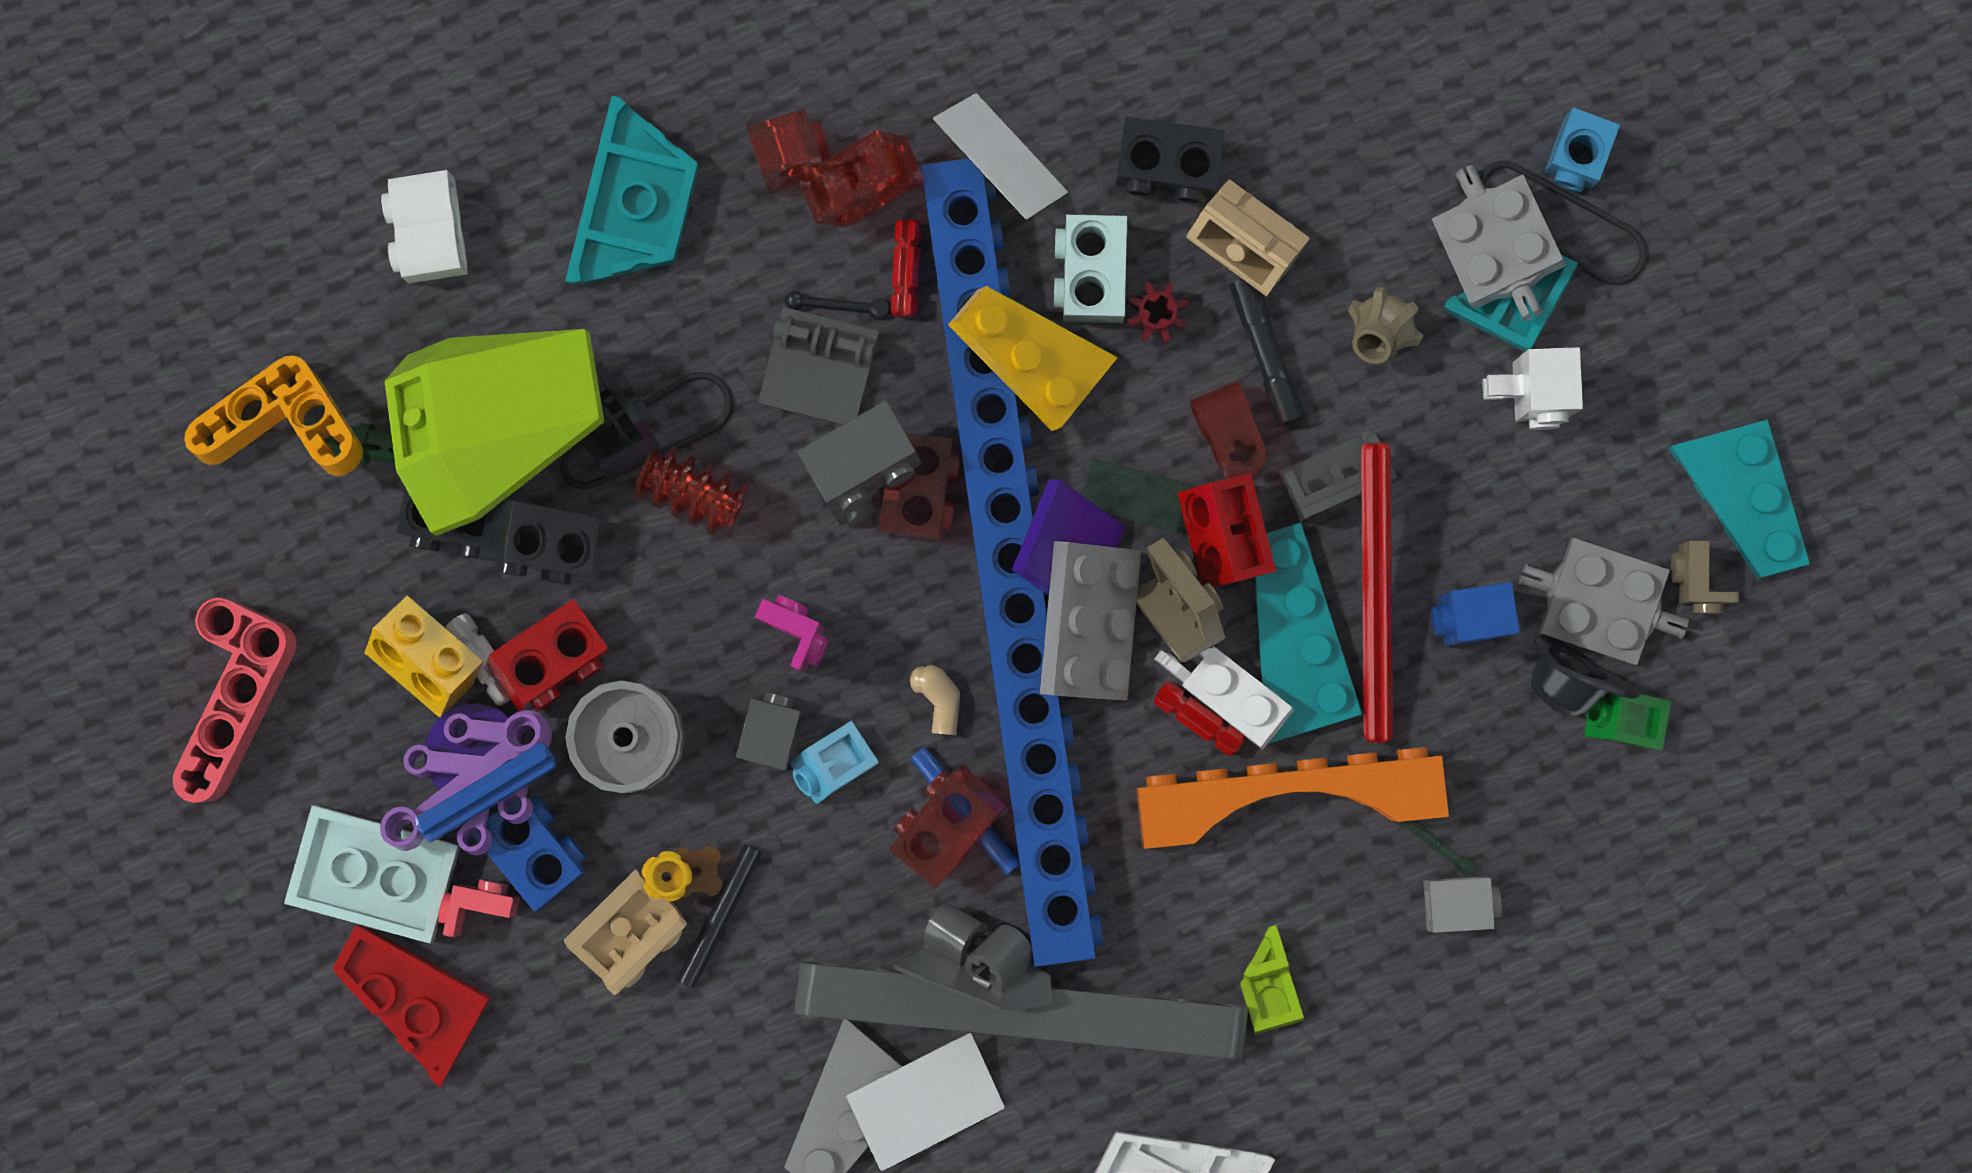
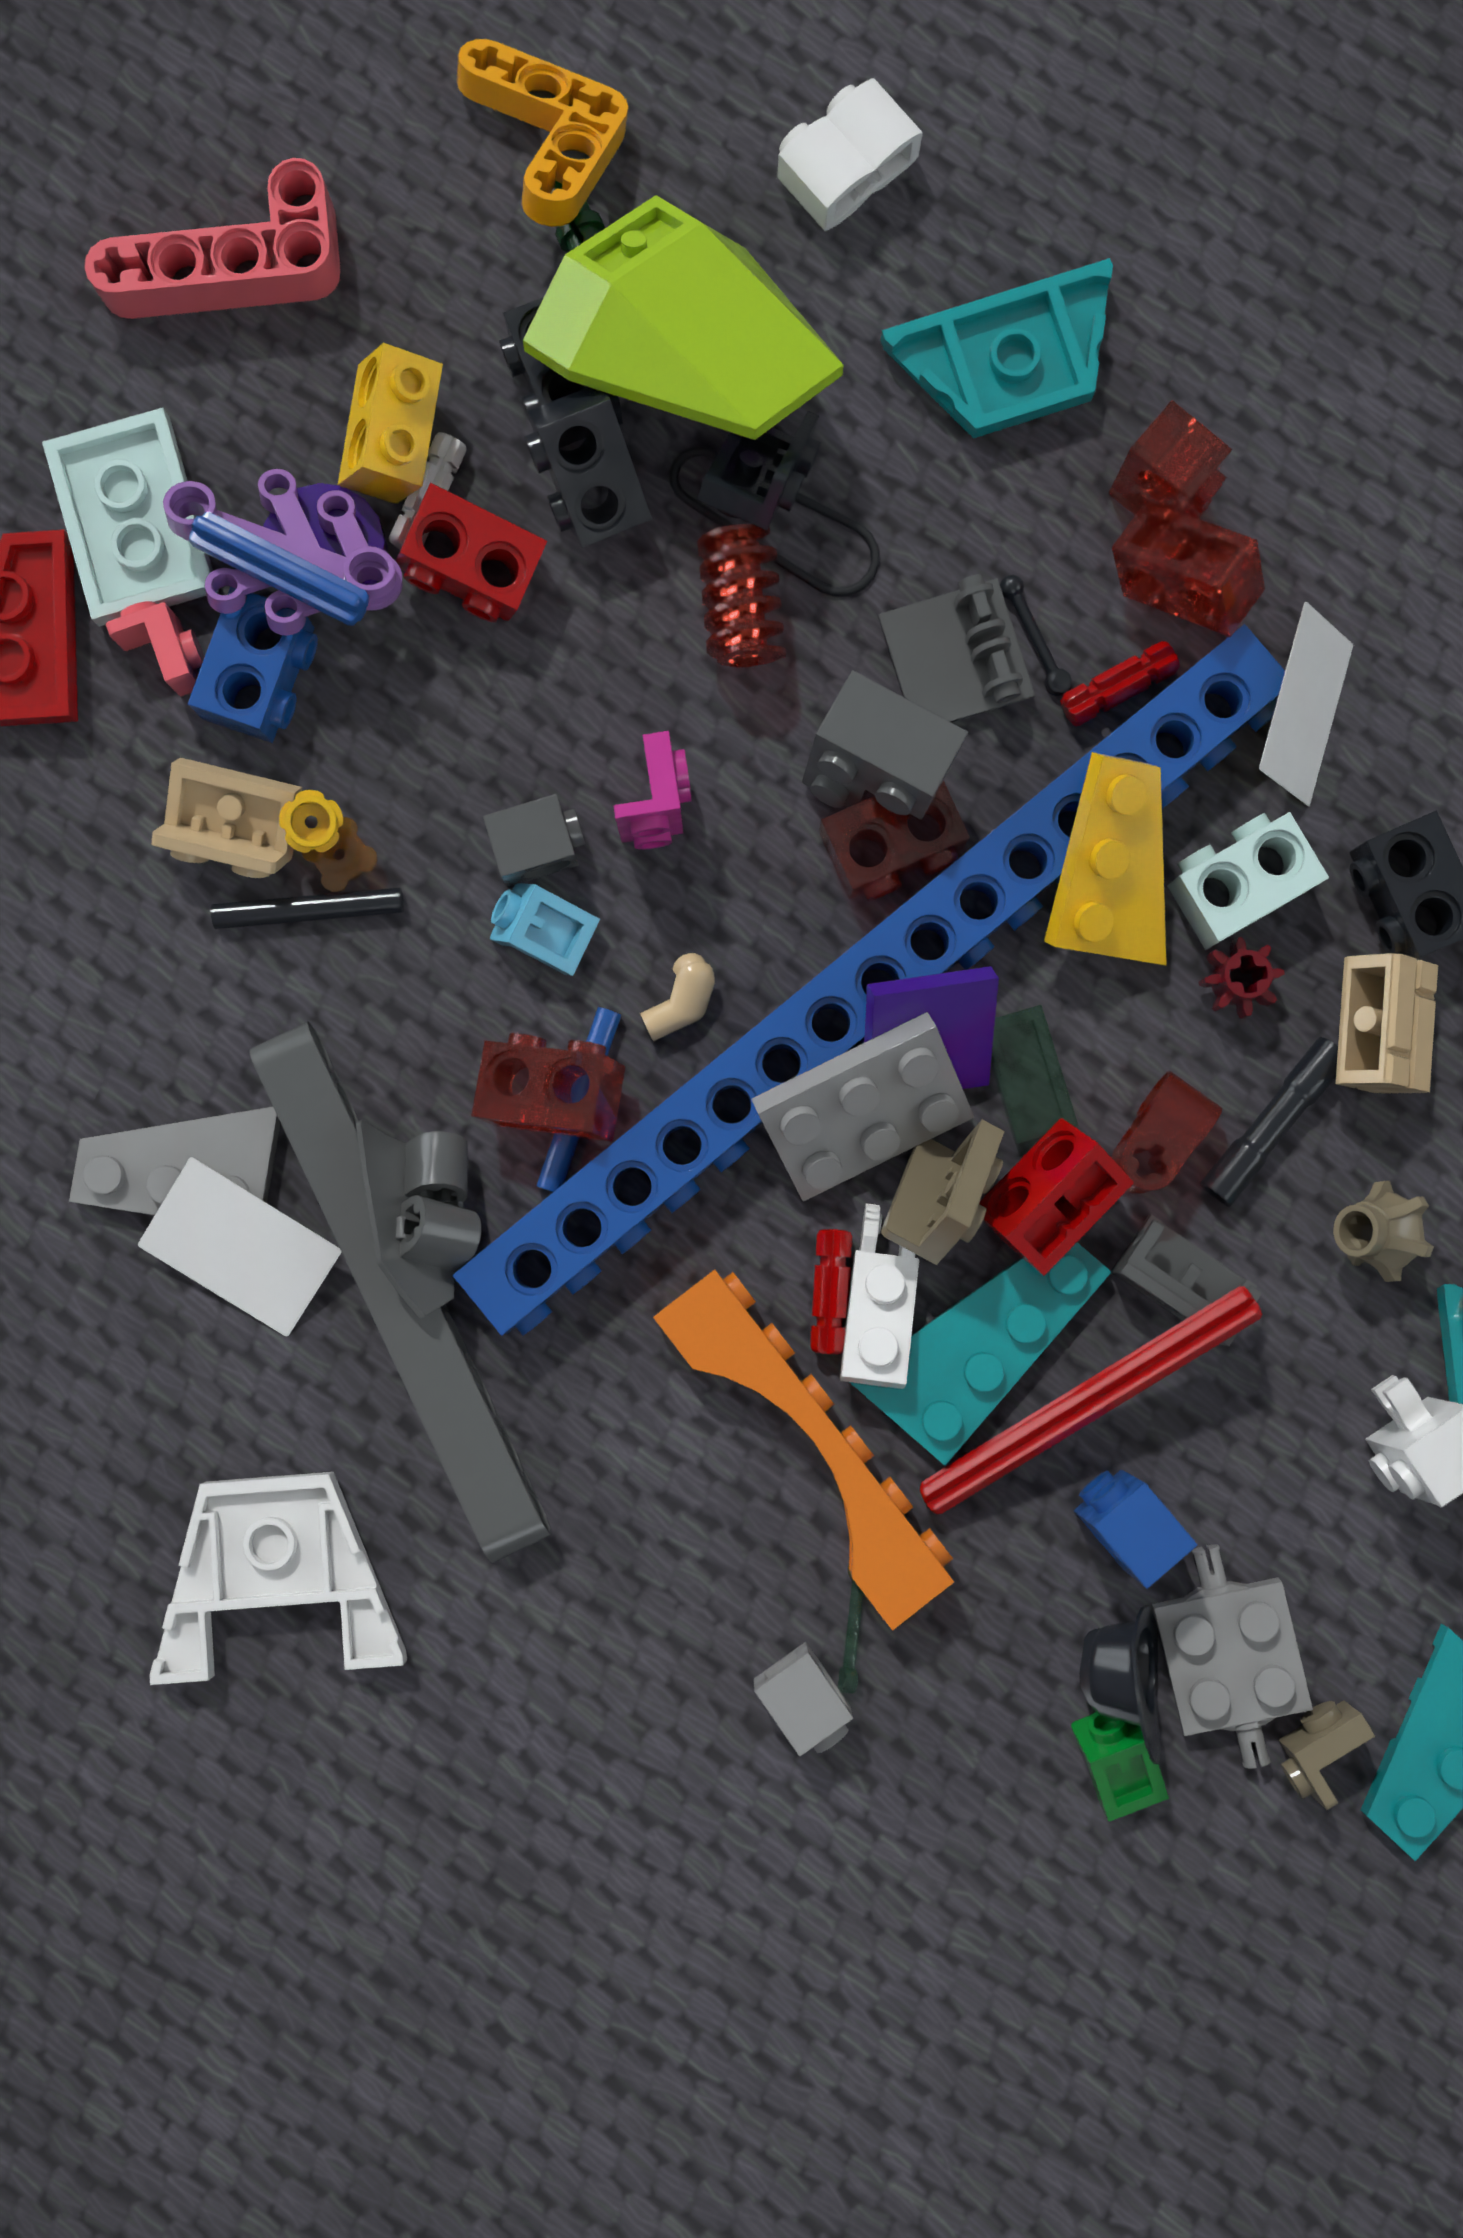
camera: 55 degrees right, 0 degrees up
(655, 742) = (413, 655): light grey wheel -> none
(1269, 987) = (587, 1545): lime slope -> none

